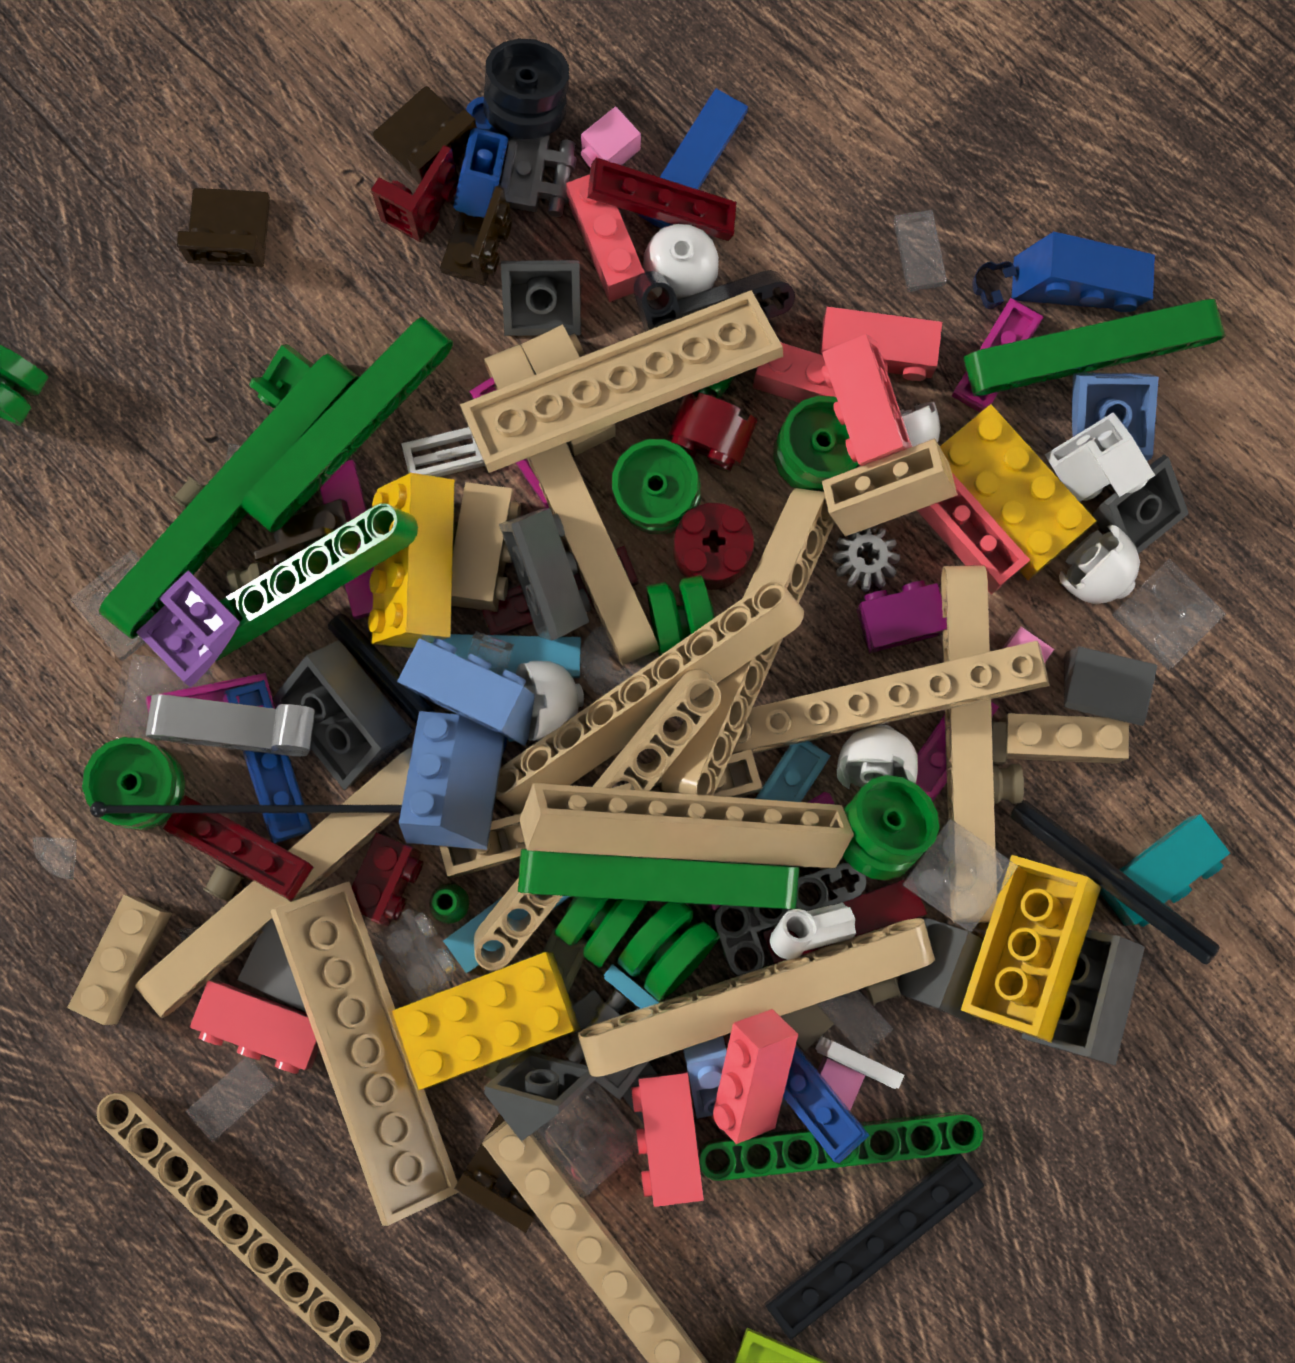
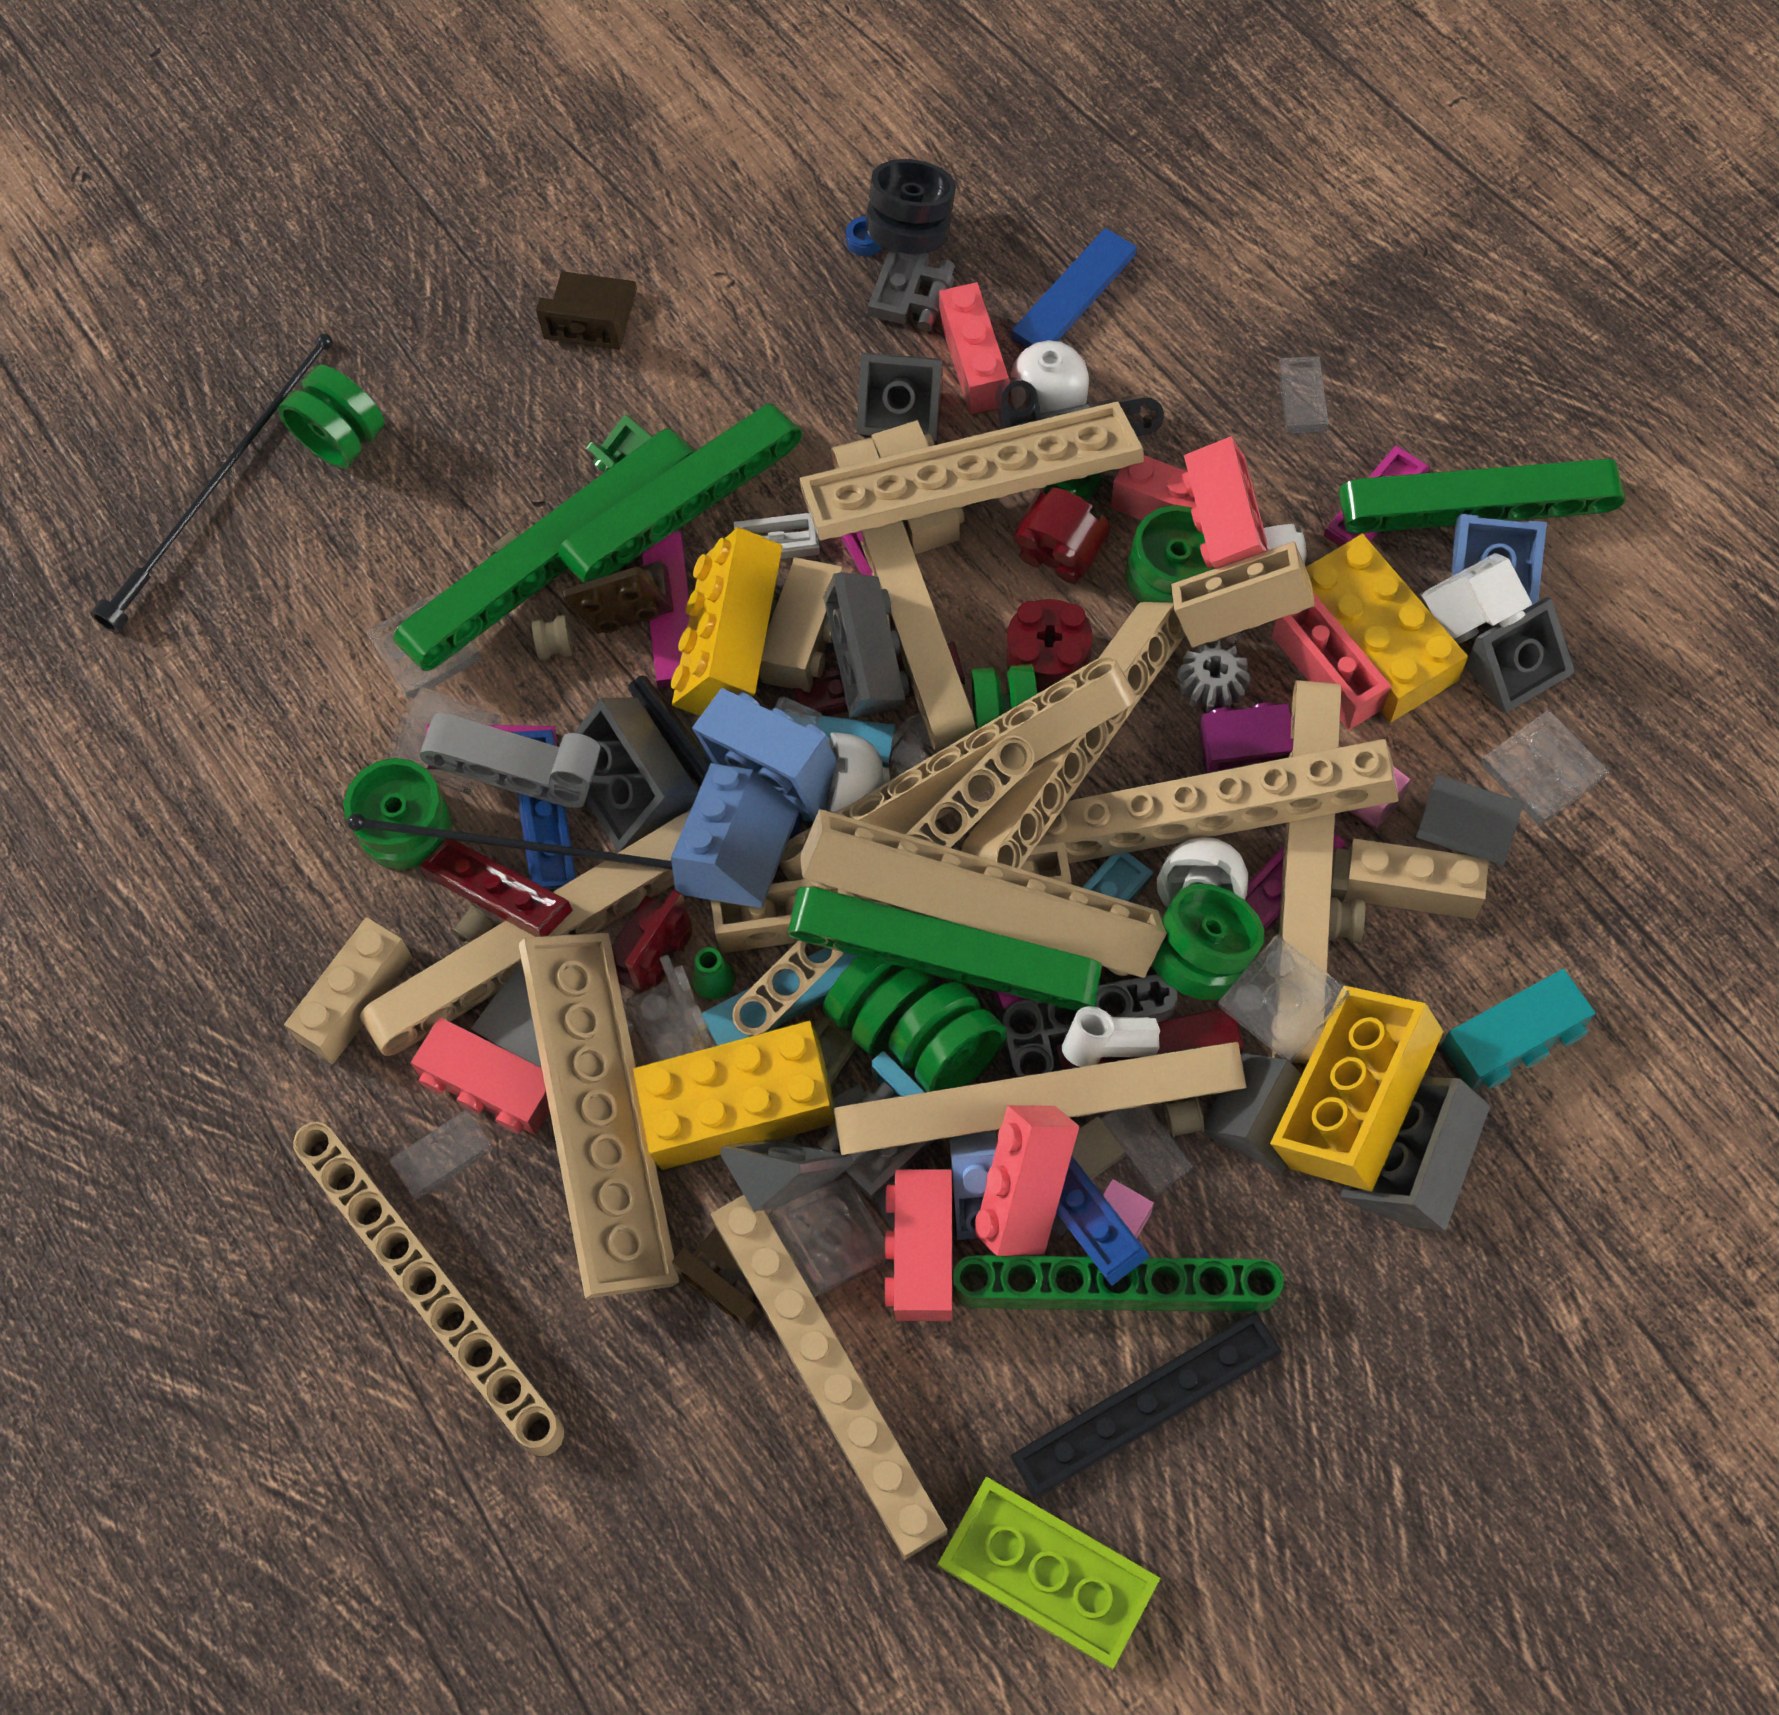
camera: 15 degrees right, 15 degrees down
(56, 855) = (302, 882): clear tile -> none
(189, 629) = (484, 663): medium lavender slope -> none
(310, 575) = (602, 626): green beam -> none
(417, 212) = (784, 304): dark red bracket -> none
(421, 129) = (805, 245): dark brown bracket -> none
(475, 242) = (842, 339): dark brown bracket -> none
(480, 171) = (853, 276): blue brick -> none
(610, 139) = (991, 263): bright pink brick -> none
(649, 464) = (992, 578): green wheel -> none
(661, 199) = (1035, 315): dark red tile -> none
(859, 1063) = (1167, 1203): white tile -> none
(905, 343) = (1277, 473): coral brick -> none
(996, 295) = (1395, 419): dark blue piece -> none
(1083, 273) = (1474, 425): blue wedge -> none
(1102, 567) = (1474, 711): white cylinder -> none
(1115, 882) = (1462, 1026): black axle -> none

